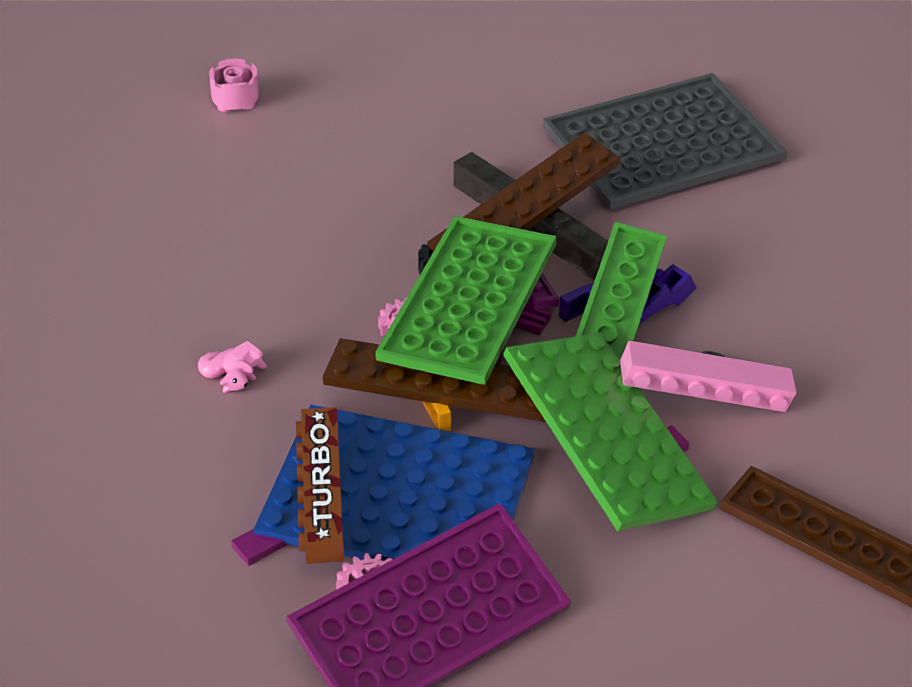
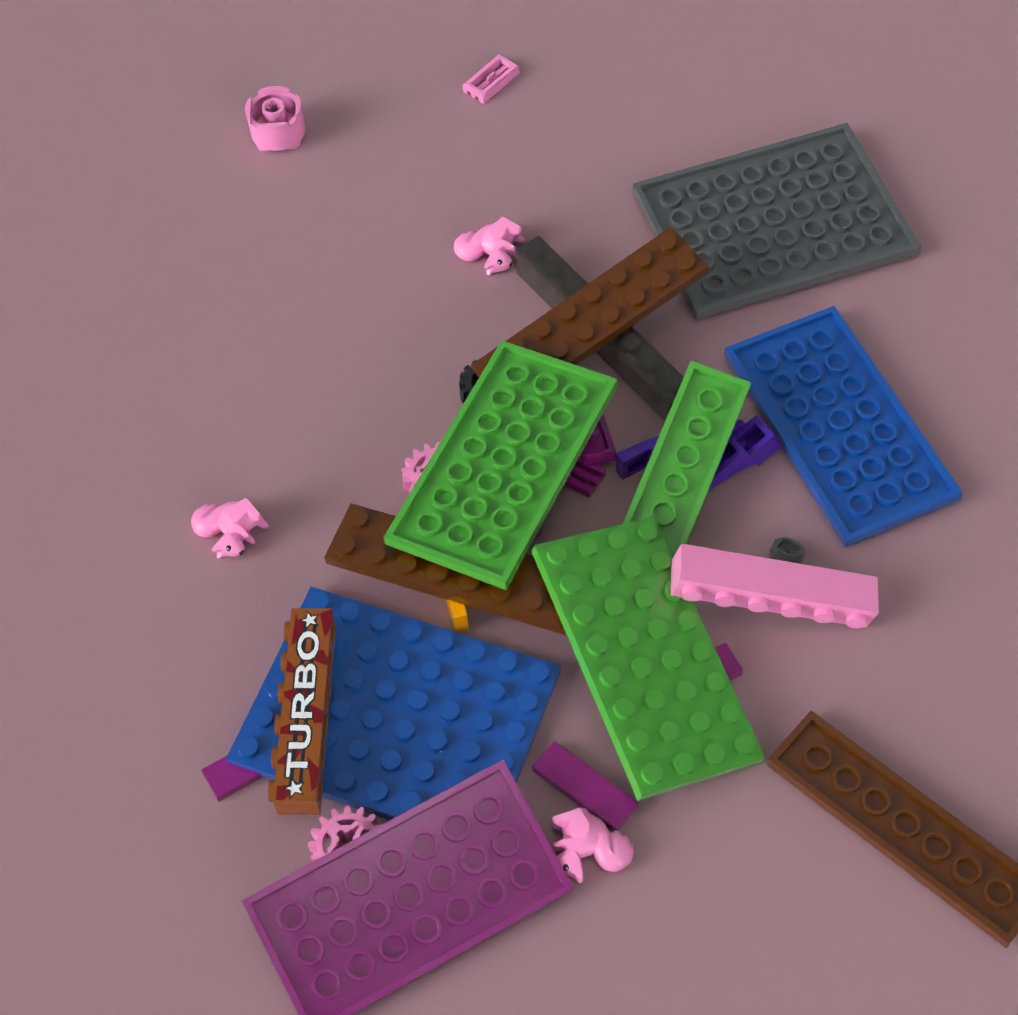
camera: 10 degrees right, 15 degrees up
(414, 57) = (495, 80): none -> bright pink tile
(431, 161) = (494, 240): none -> bright pink animal
(568, 533) = (585, 786): none -> magenta tile
(575, 565) = (588, 836): none -> bright pink animal
(746, 275) = (842, 426): none -> blue plate

